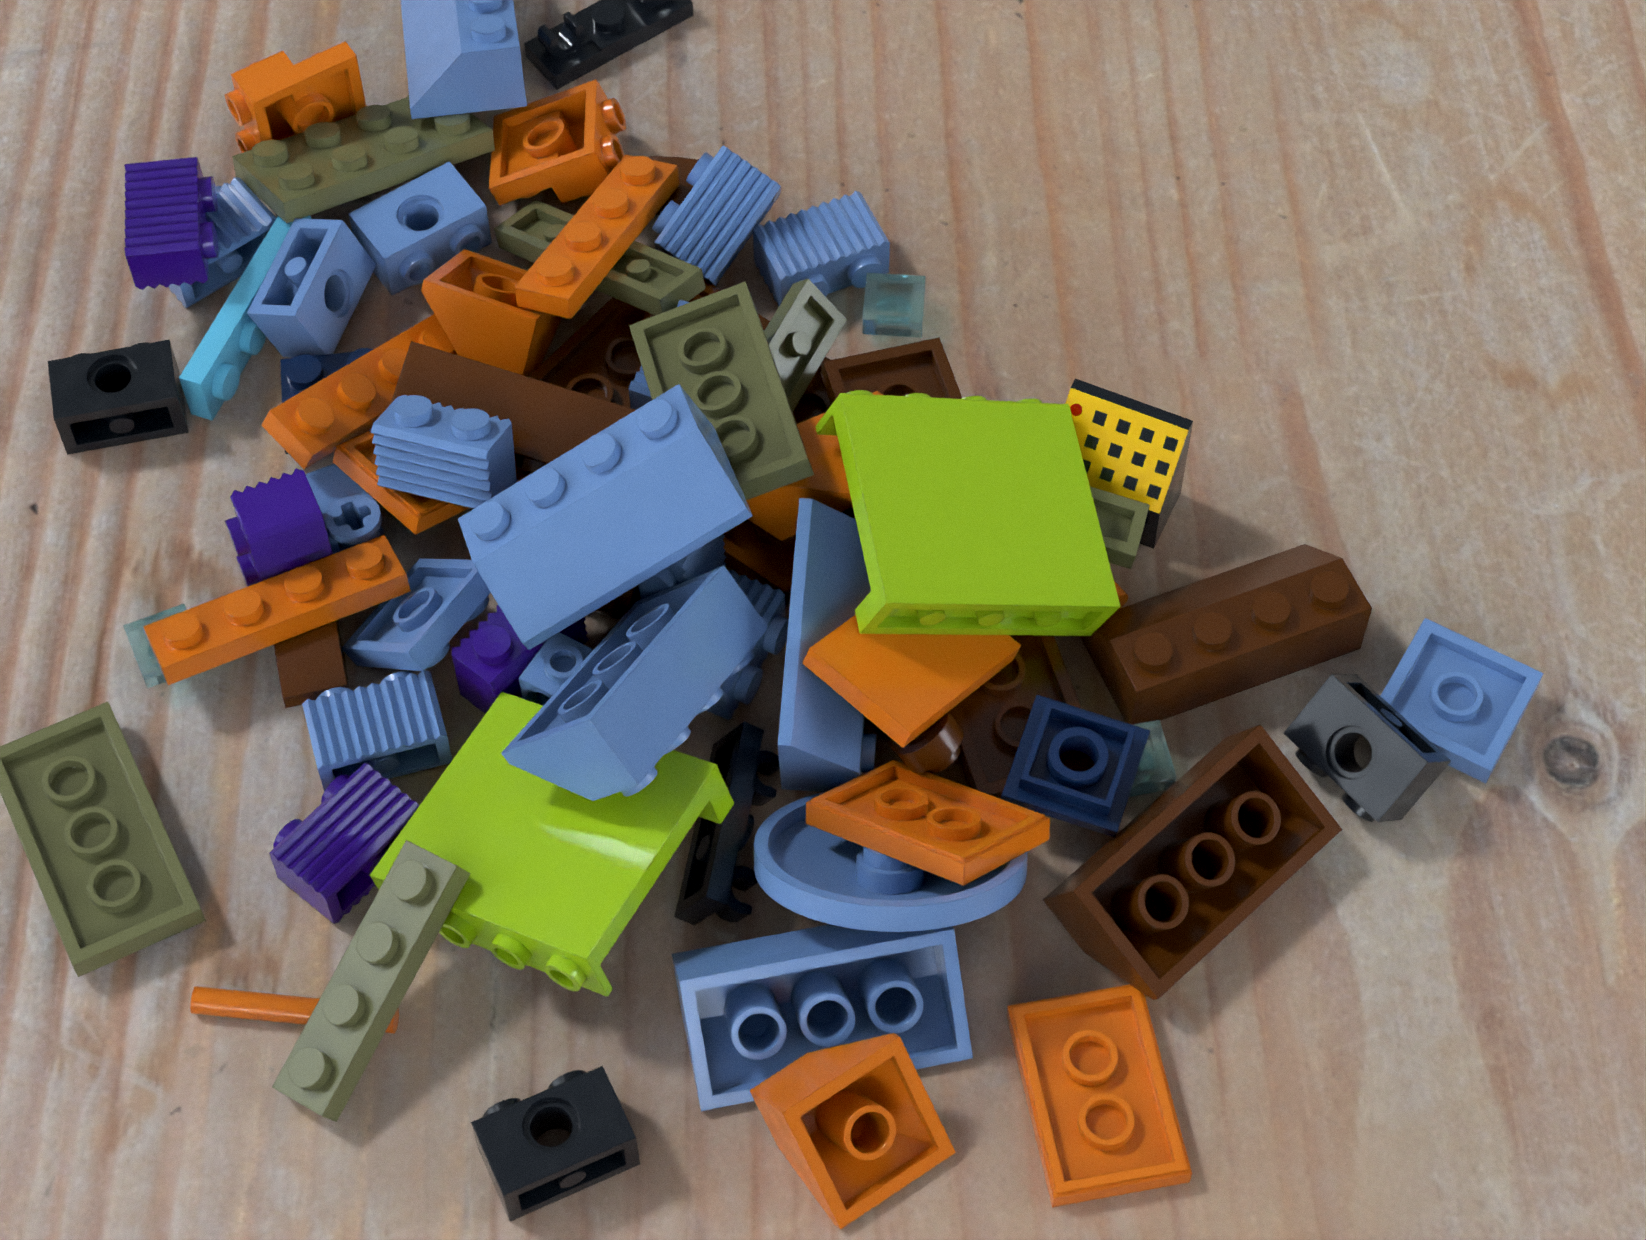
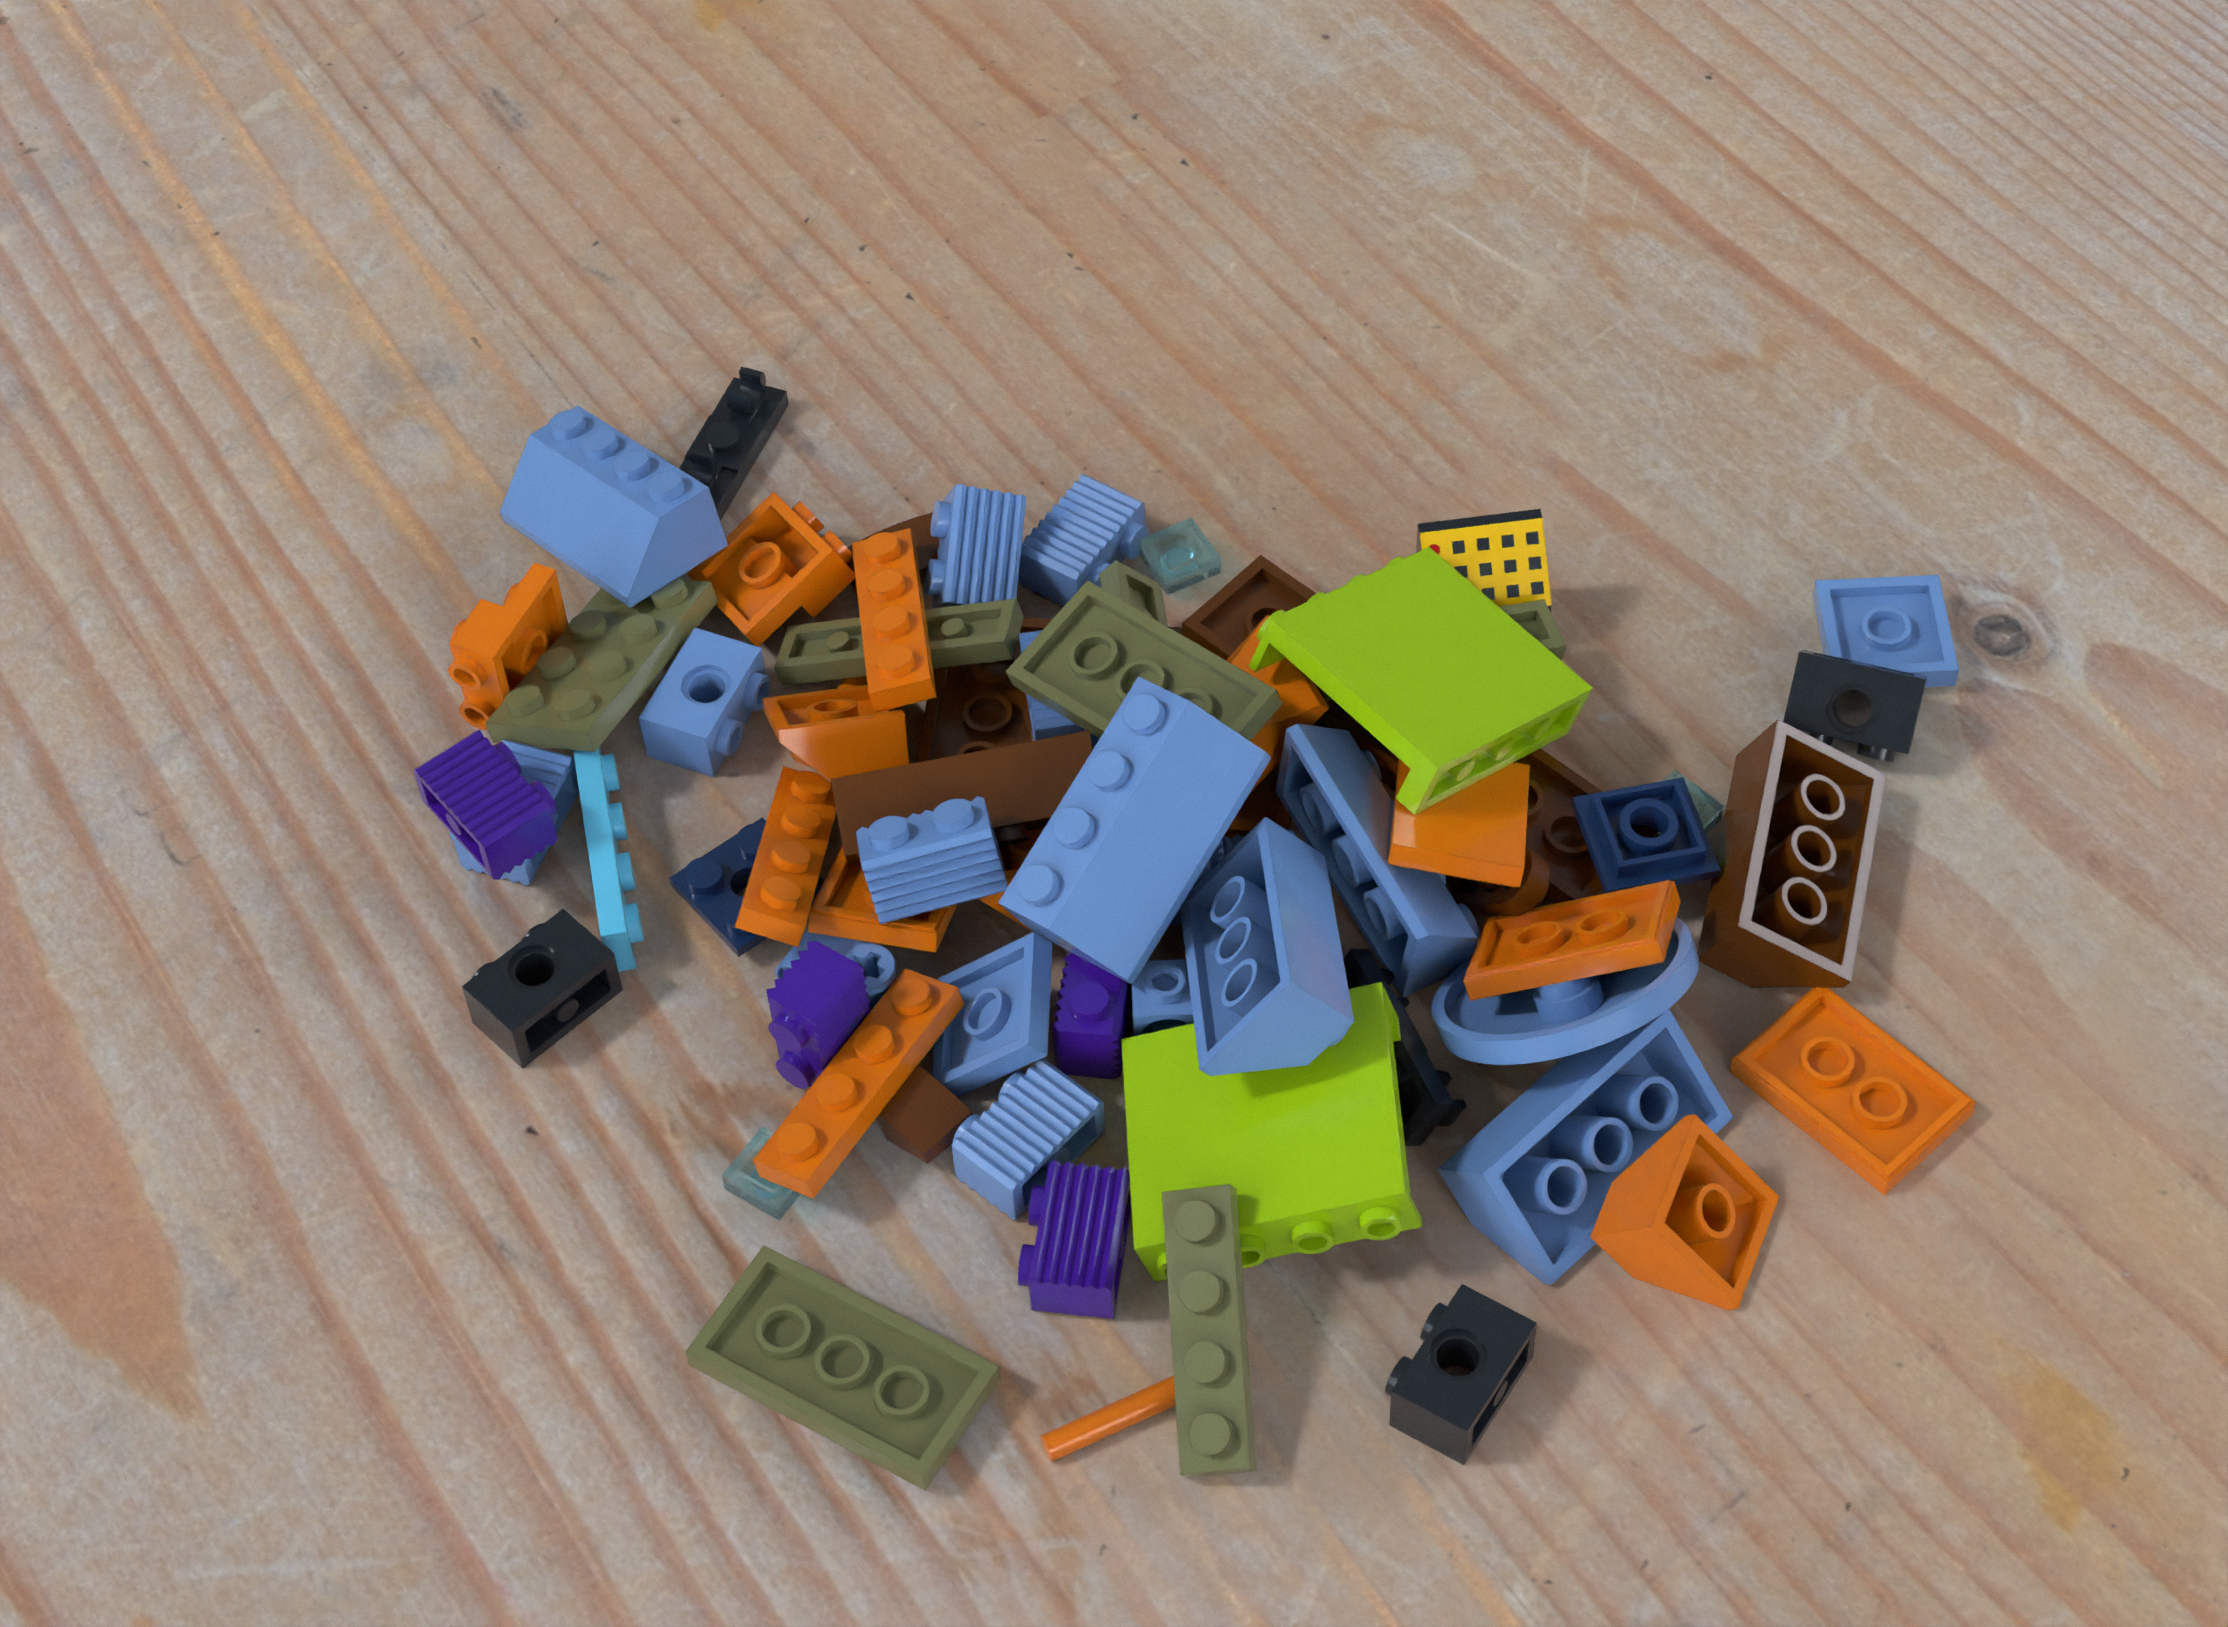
camera: 30 degrees left, 5 degrees down
(312, 287) = (654, 799): medium blue brick -> none
(1229, 633) = (1670, 672): reddish brown slope -> none

